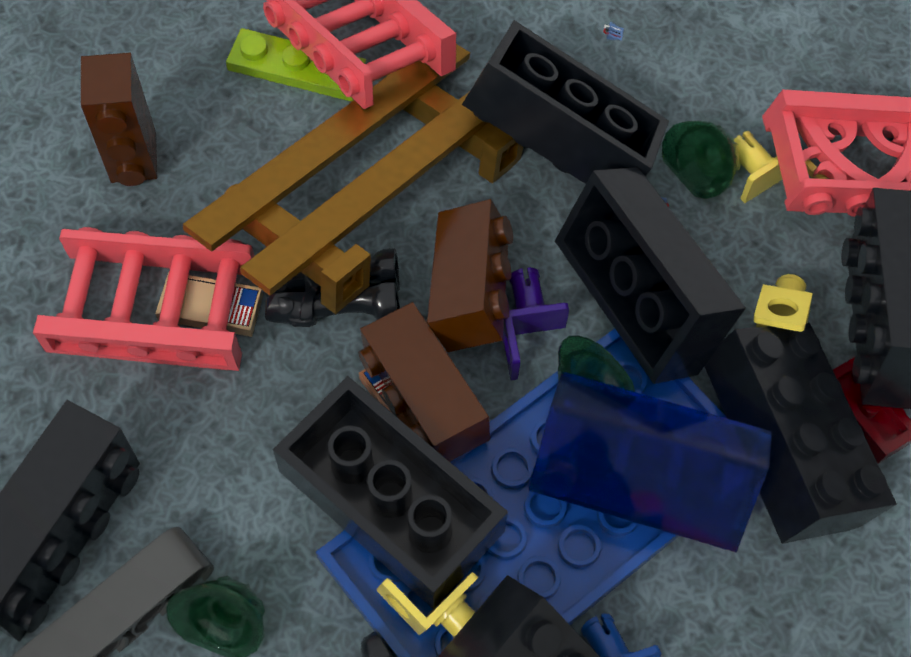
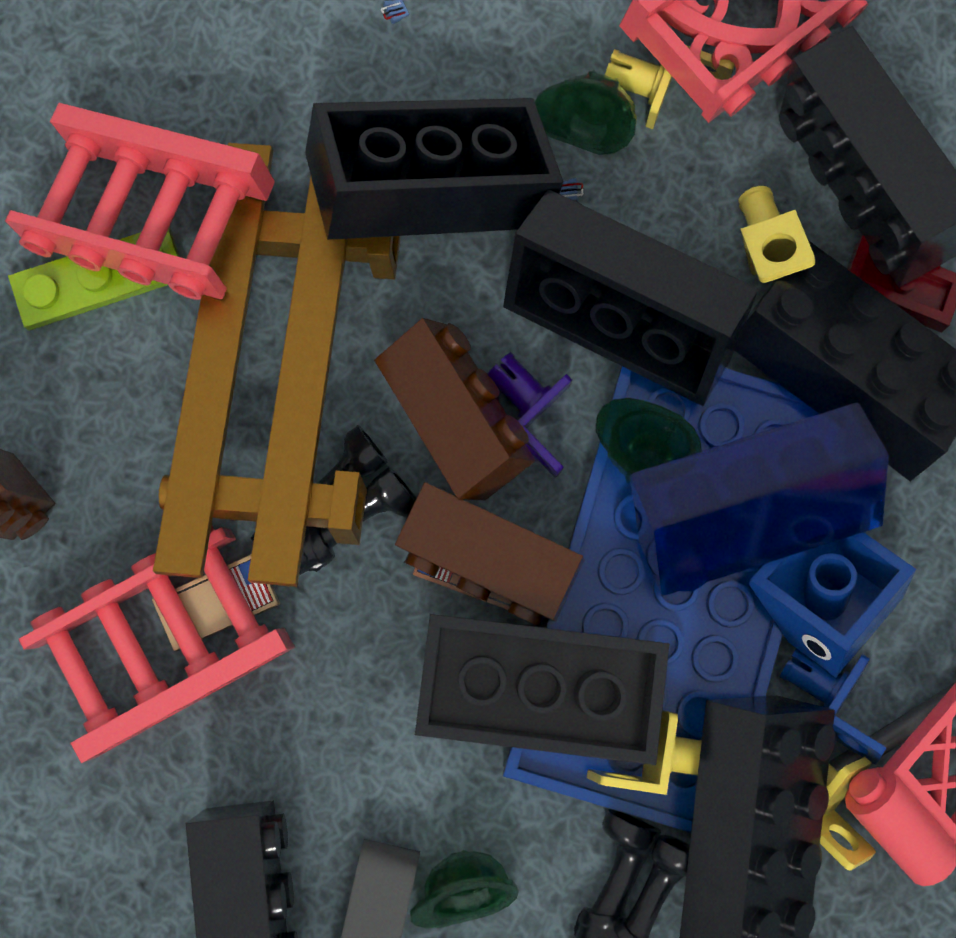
camera: 35 degrees left, 20 degrees up
(664, 586) = (833, 596): none -> blue slope

